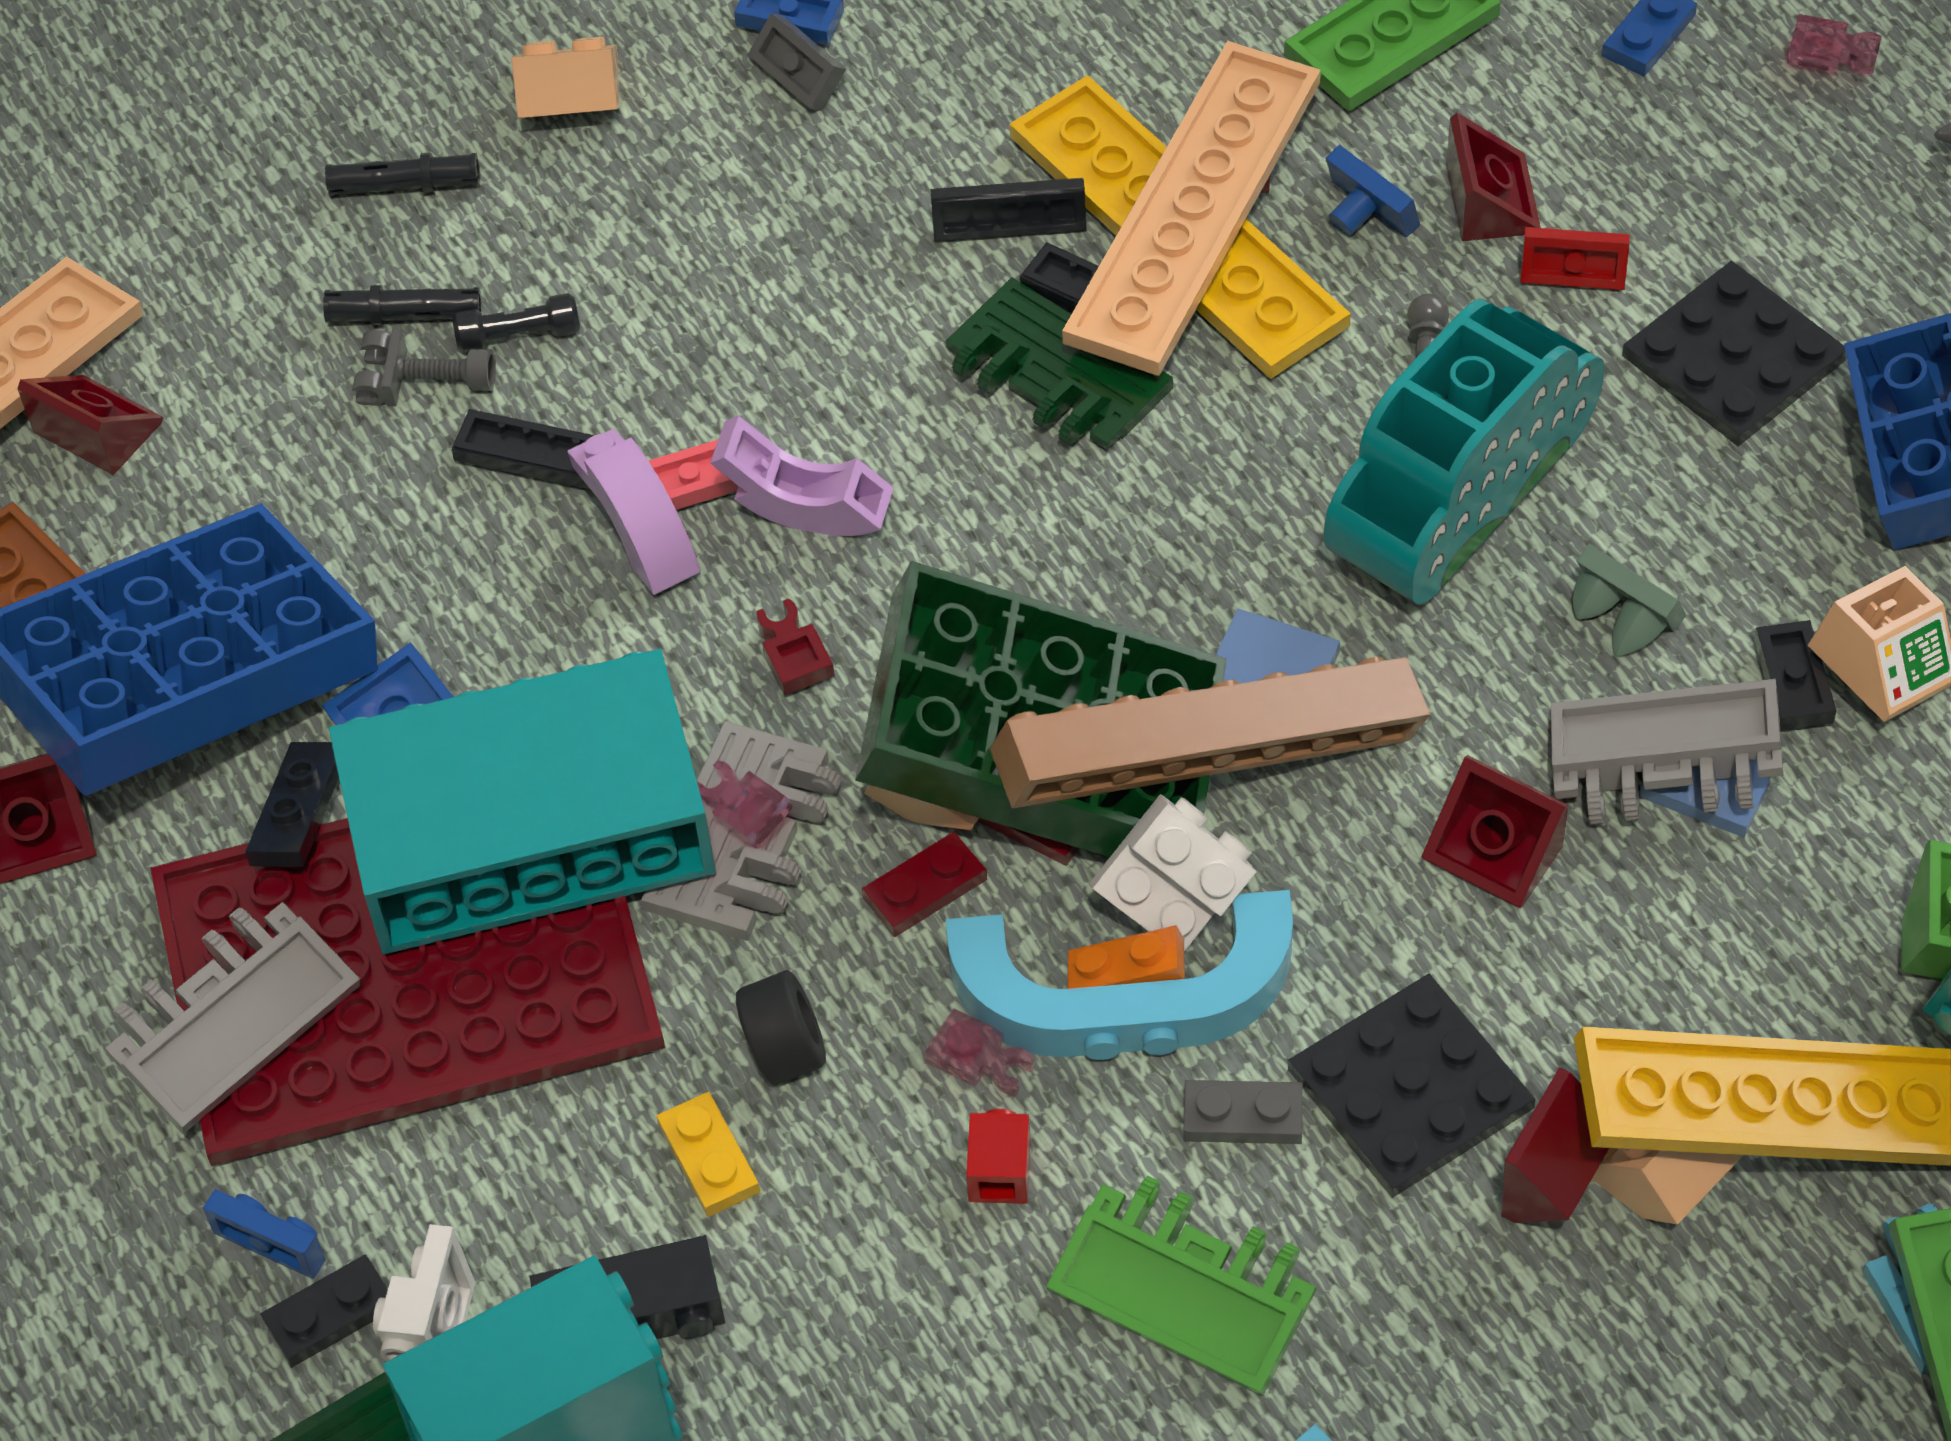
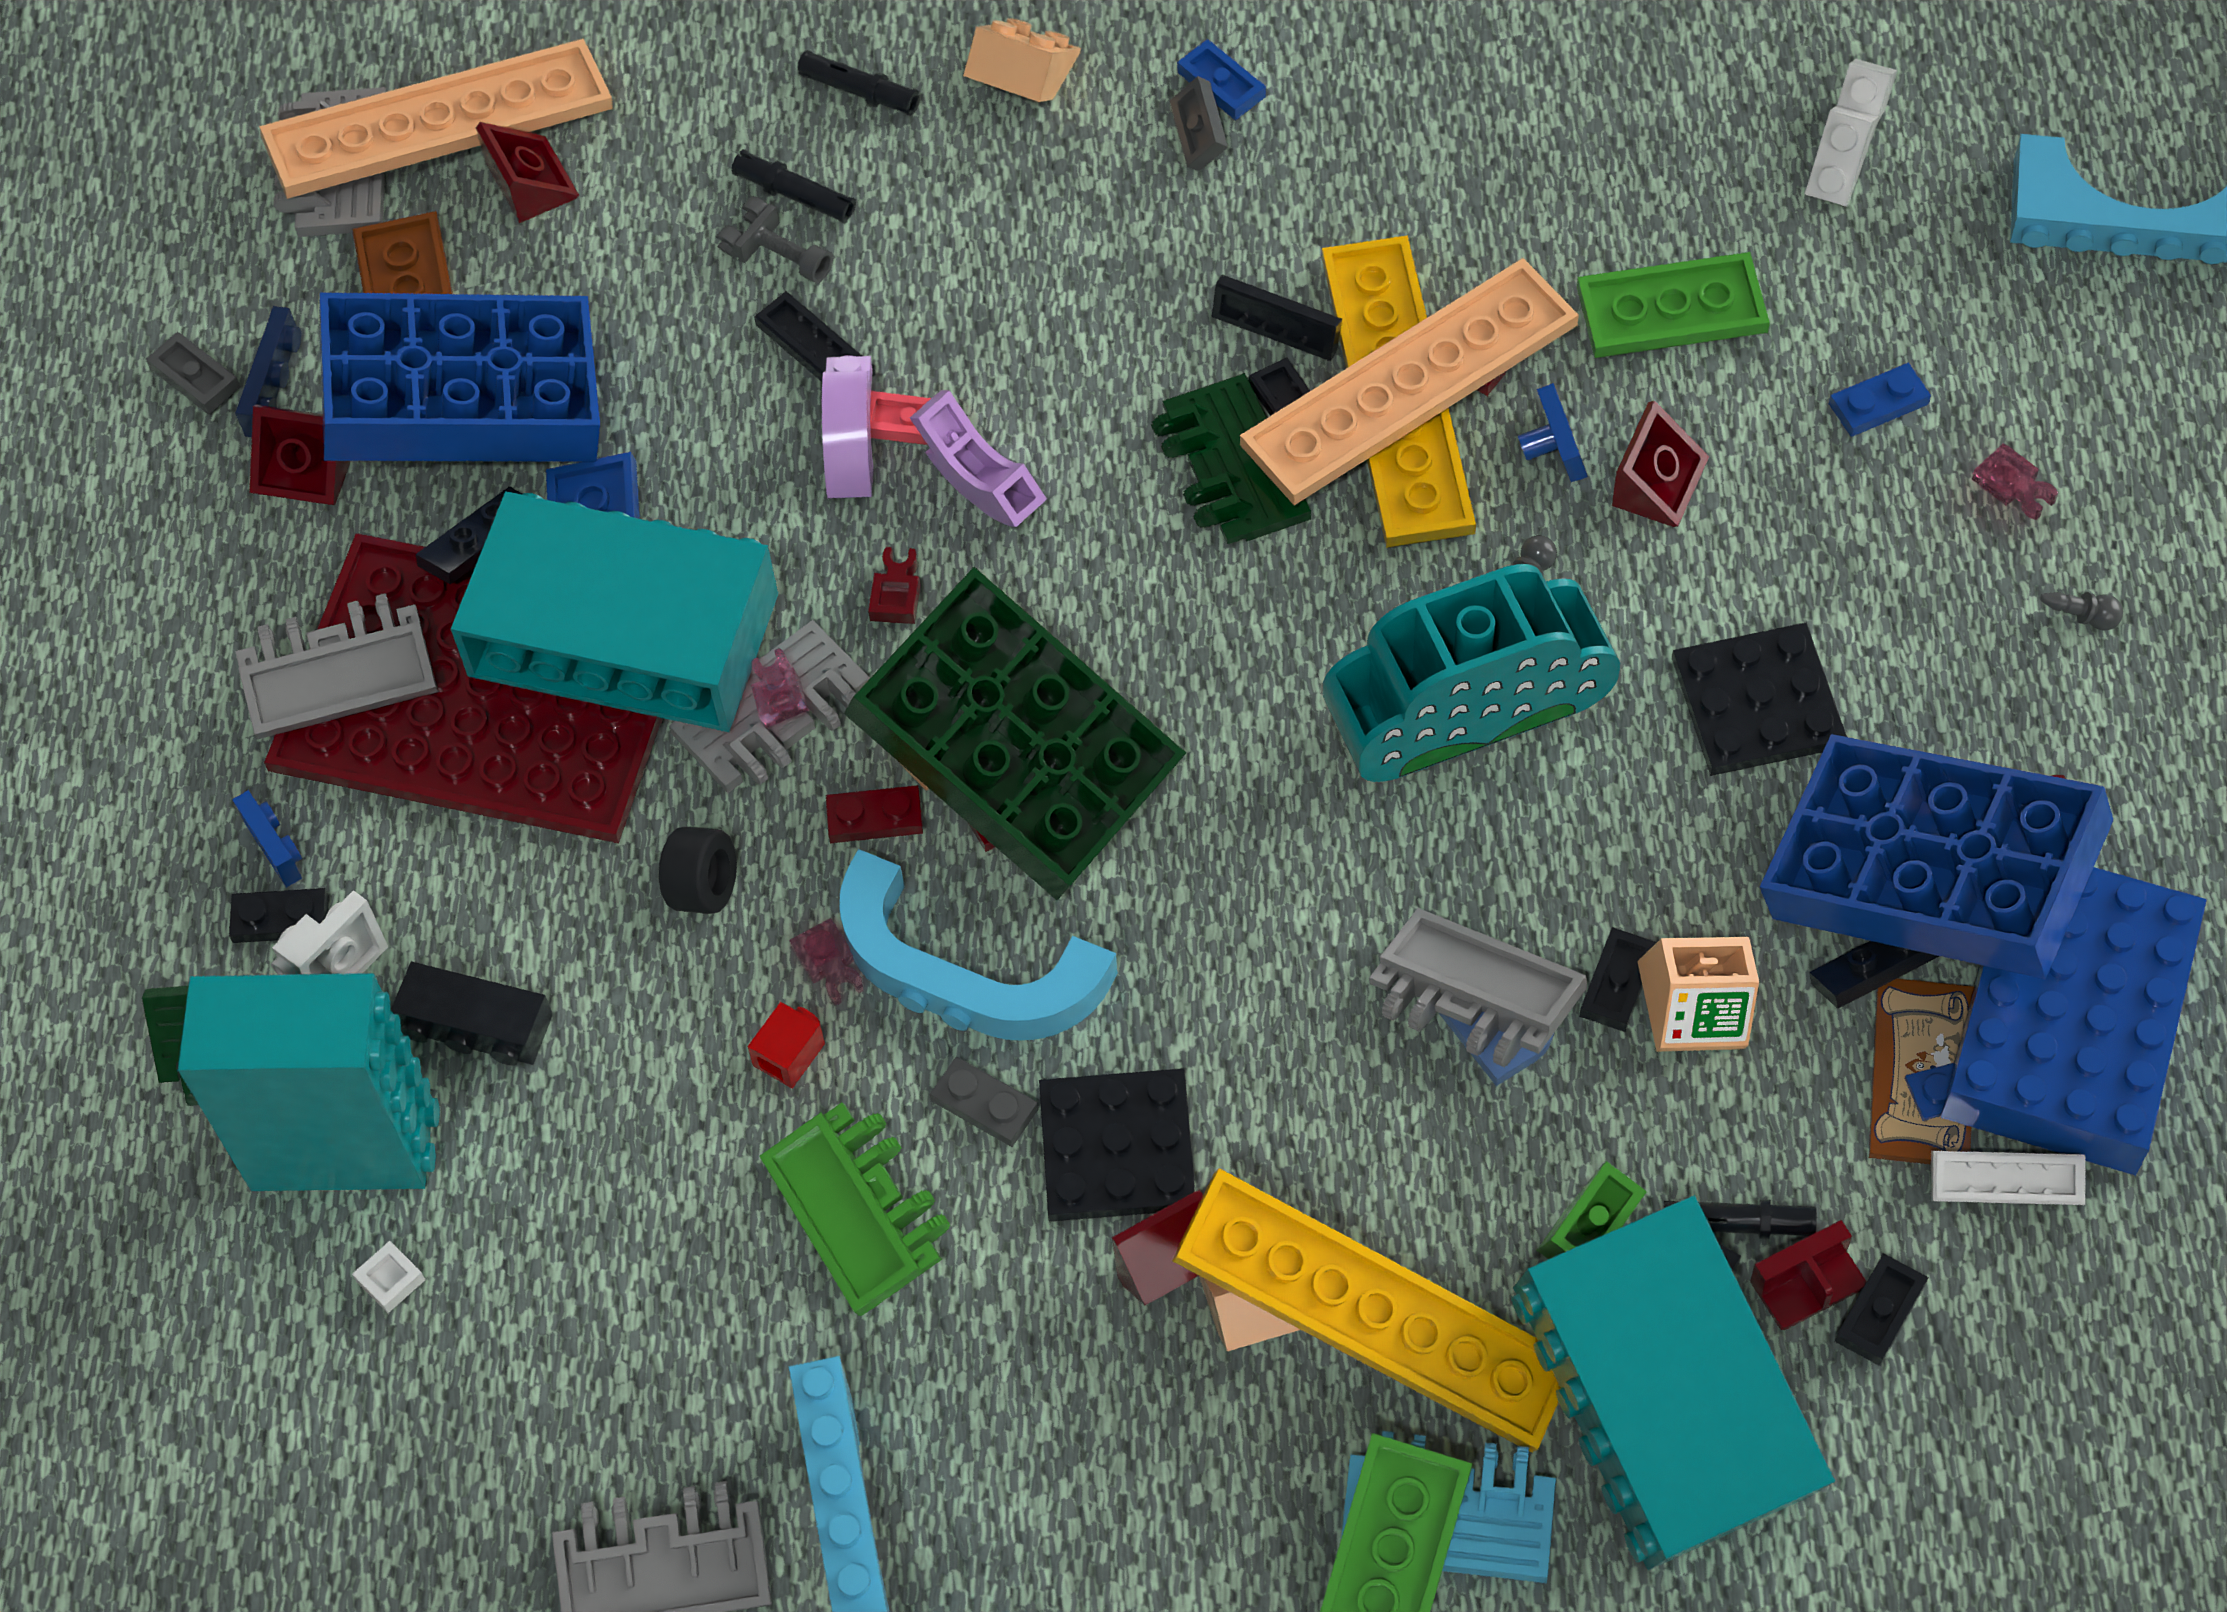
camera: 30 degrees right, 5 degrees up
(475, 330) = (897, 246): black piece -> none
(708, 1154) = (597, 936): yellow plate -> none
(1129, 960) = (971, 947): orange plate -> none
(1174, 870) = (1037, 897): white plate -> none
(1207, 730) = (1127, 802): medium nougat brick -> none
(1266, 646) = (1232, 775): medium blue tile -> none
(1497, 832) = (1303, 988): dark red slope -> none
(1575, 258) = (1681, 562): red tile -> none
(1645, 608) = (1541, 869): sand green tile -> none

